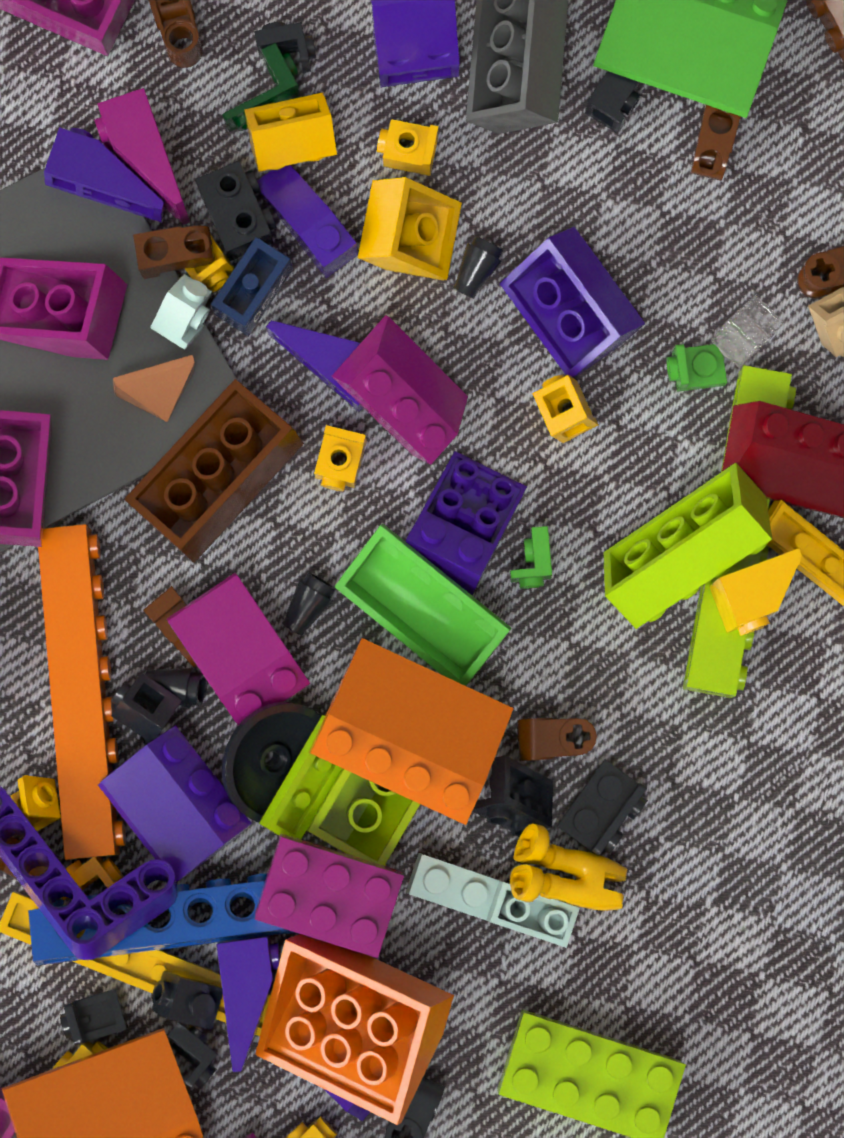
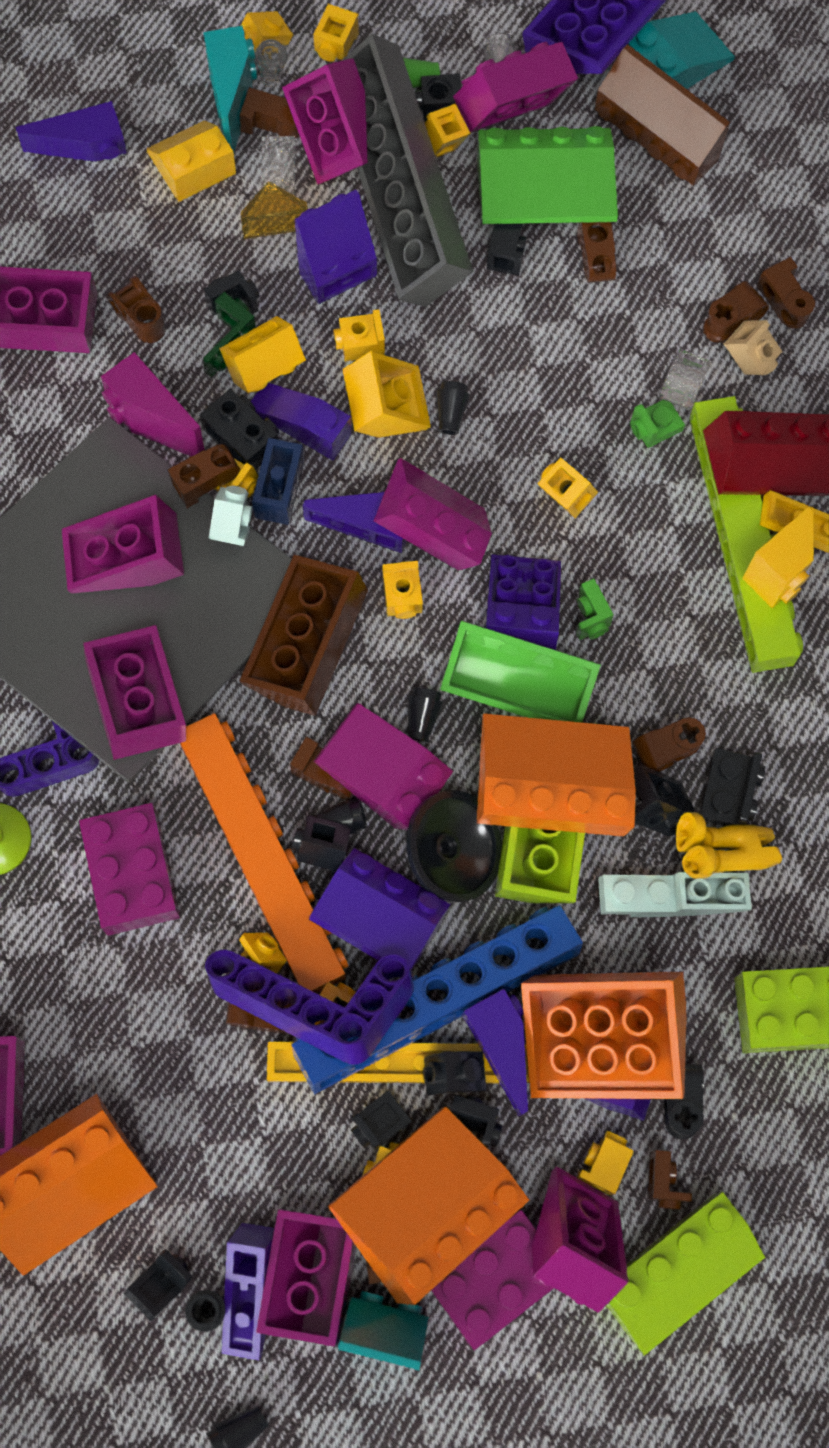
camera: 25 degrees left, 10 degrees down
(93, 172) = (118, 438): dark purple slope -> none
(156, 387) = (230, 584): nougat slope -> none
(301, 792) = (482, 862): lime plate -> none
(329, 895) = (543, 930): magenta brick -> none
(571, 302) = (537, 407): dark purple slope -> none
(687, 546) = (715, 547): lime brick -> none

